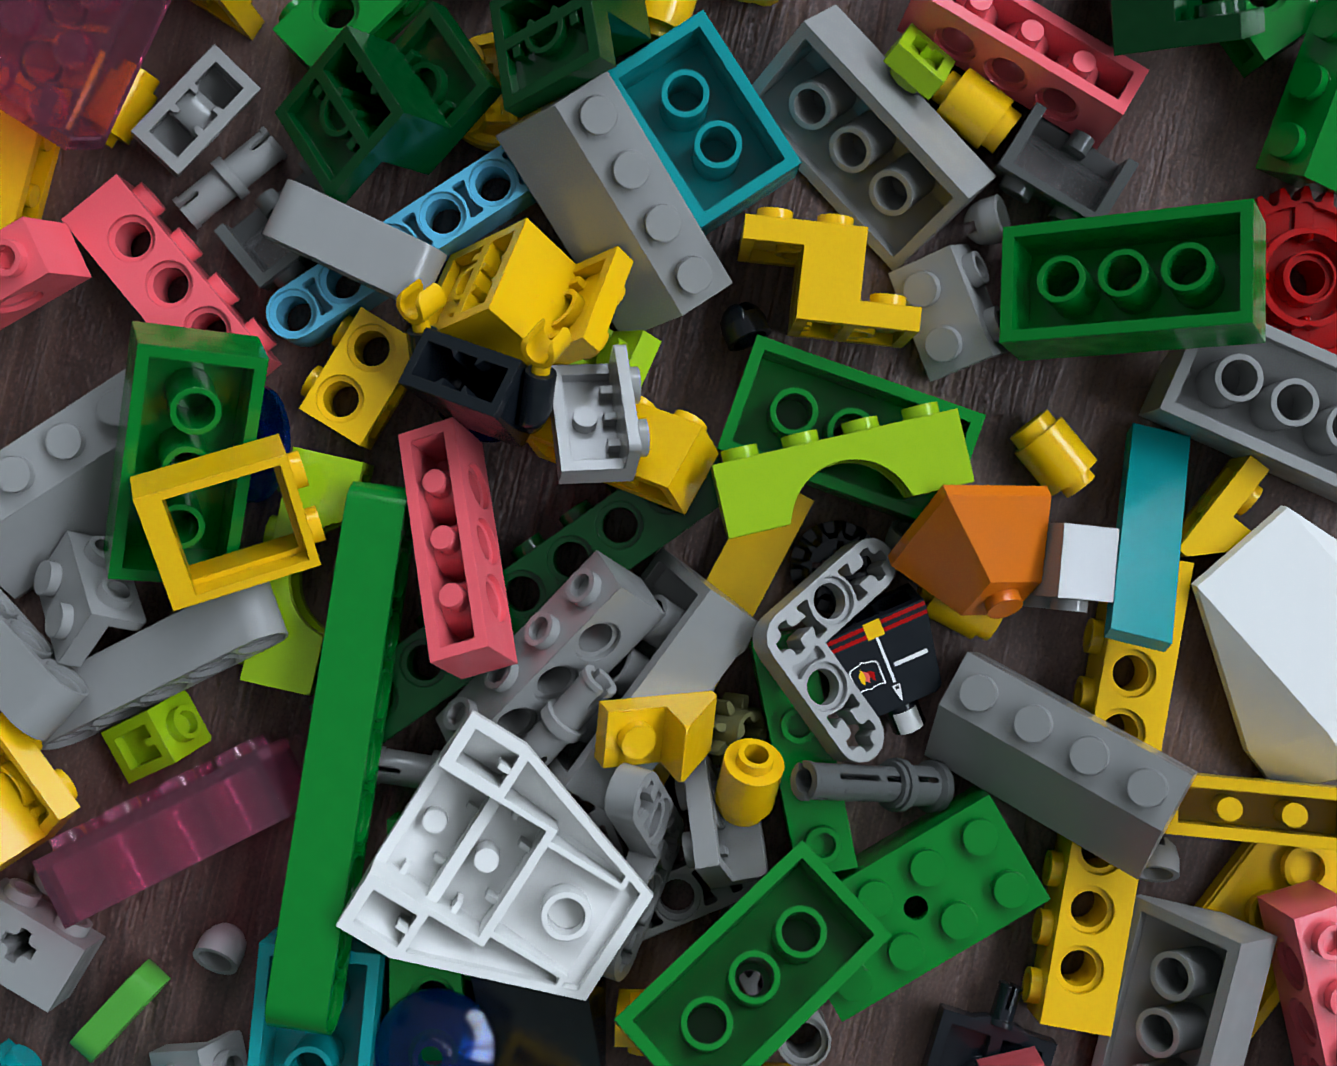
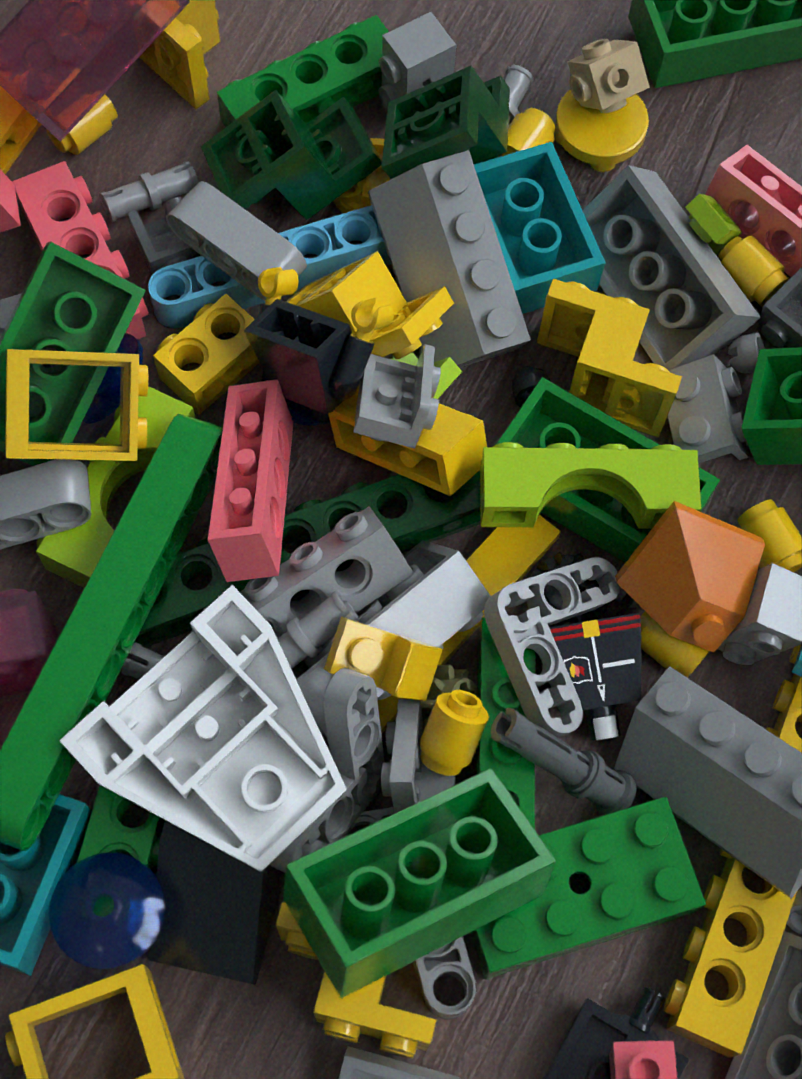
camera: 10 degrees right, 20 degrees down
(195, 111) = (139, 135): light grey brick -> none

